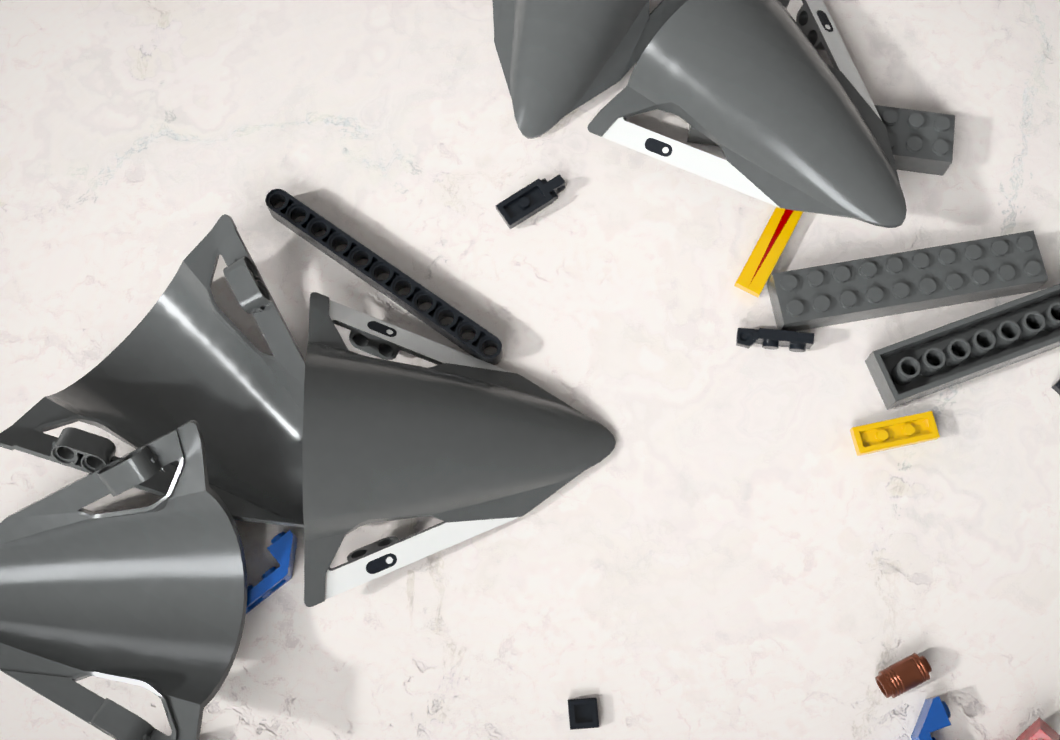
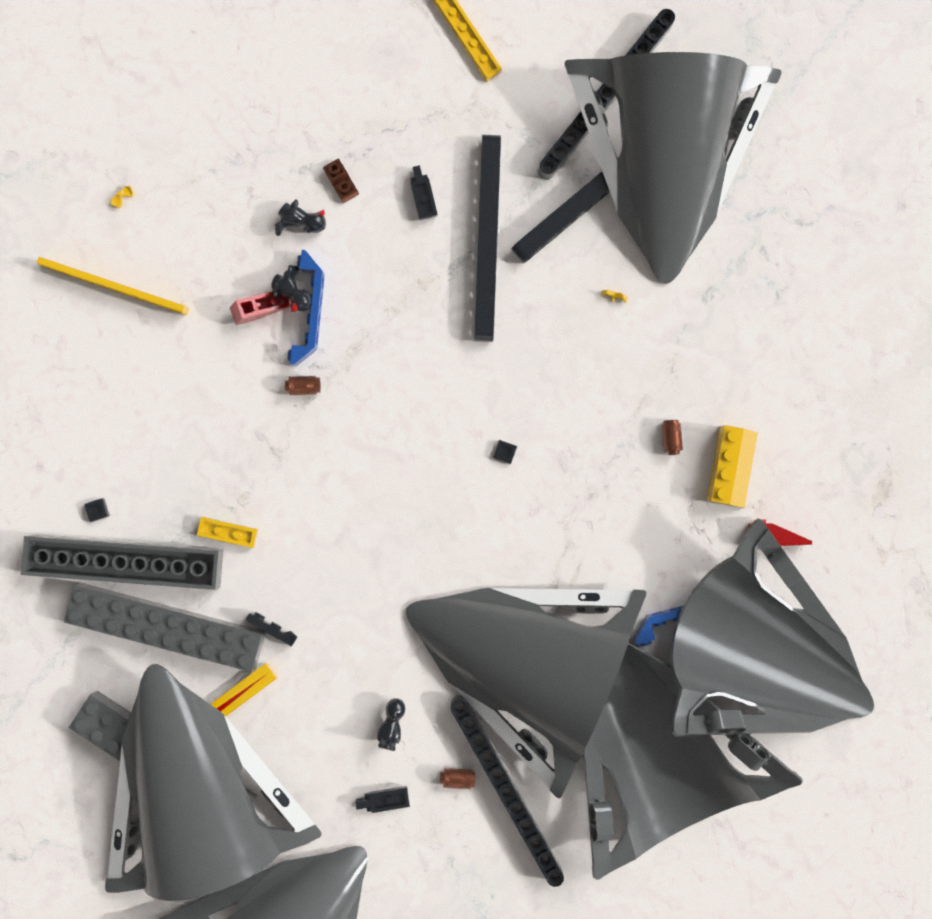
camera: 160 degrees left, 15 degrees up
(451, 263) = (457, 778): none -> copper head
(563, 281) = (390, 730): none -> black animal

